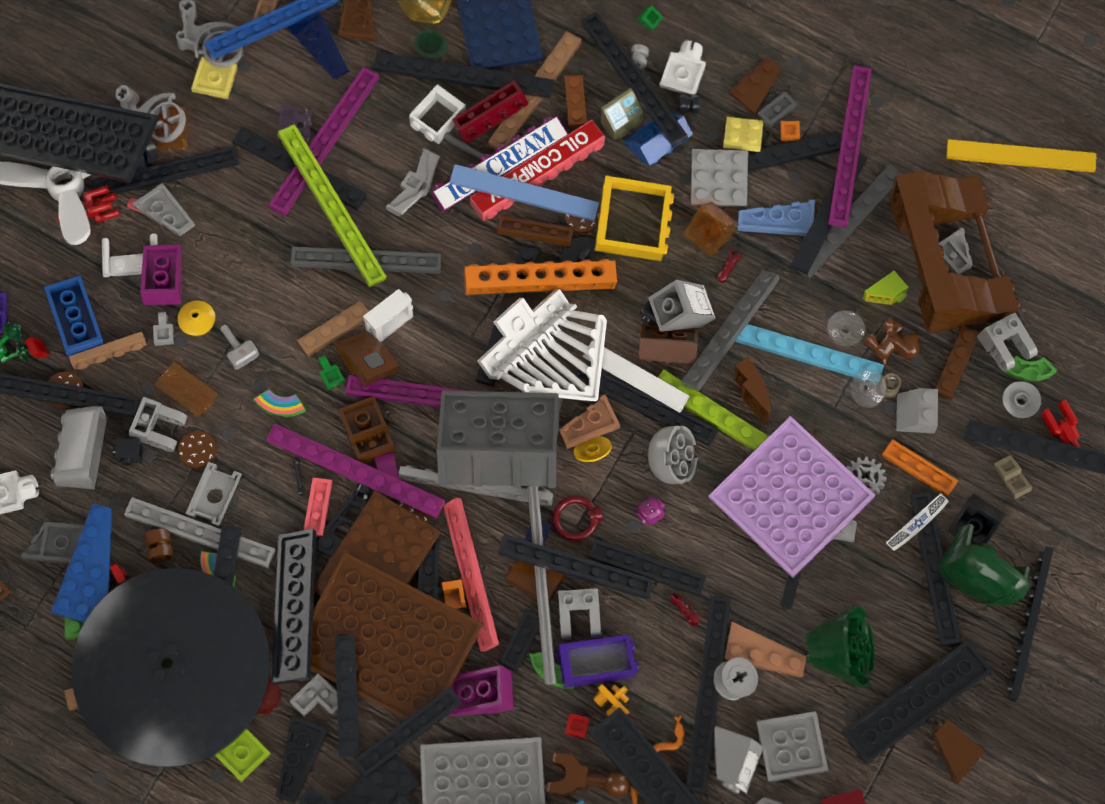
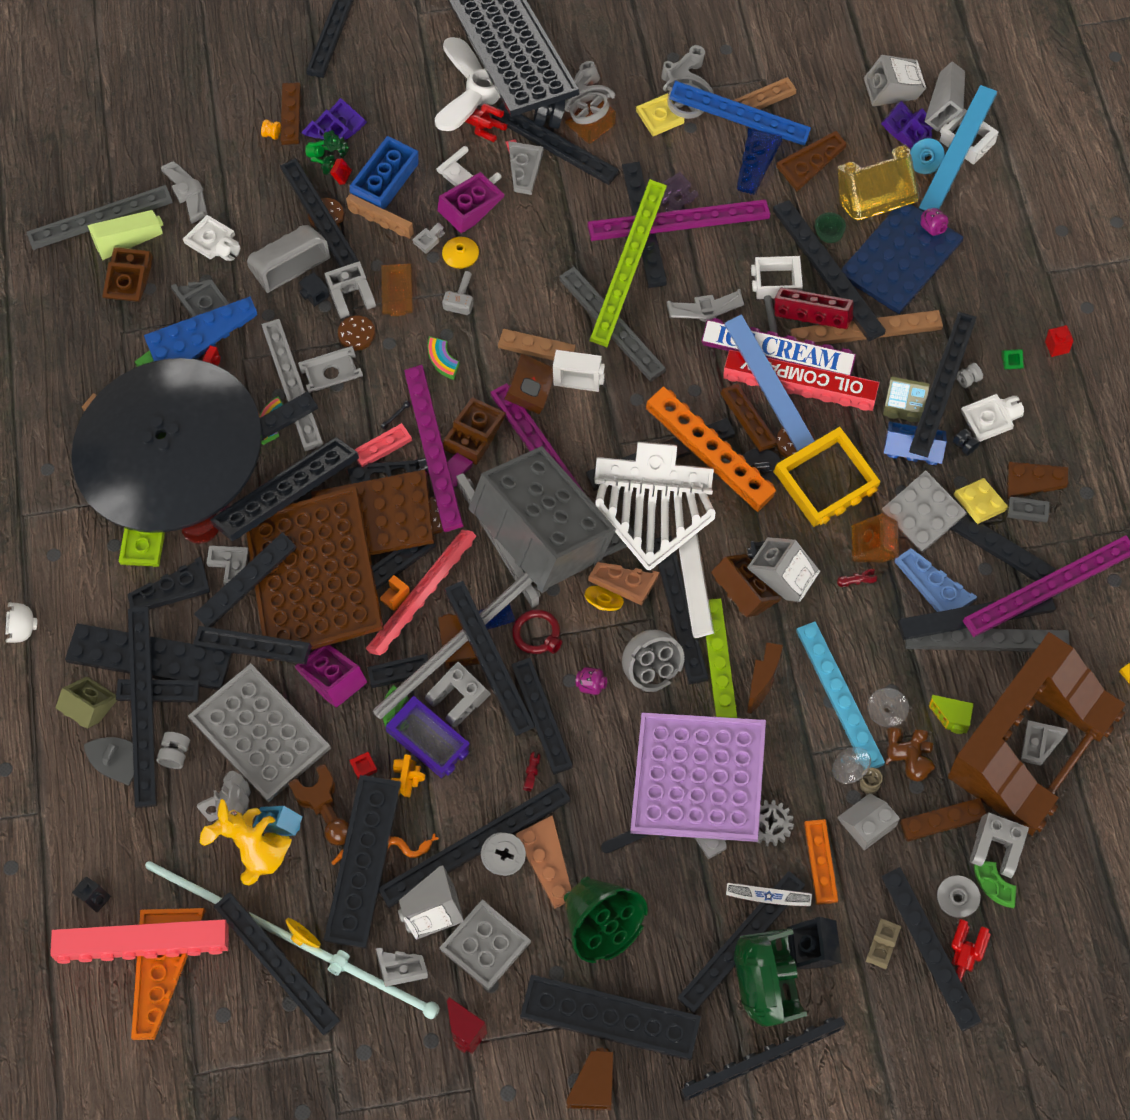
camera: 50 degrees right, 5 degrees down
(158, 545) = (254, 366): reddish brown wheel -> none
(331, 374) = (496, 371): green plate -> none
(575, 101) = (887, 361): dark orange plate -> none
(730, 330) = (801, 620): dark grey plate -> none
(790, 130) = (1019, 533): orange plate -> none

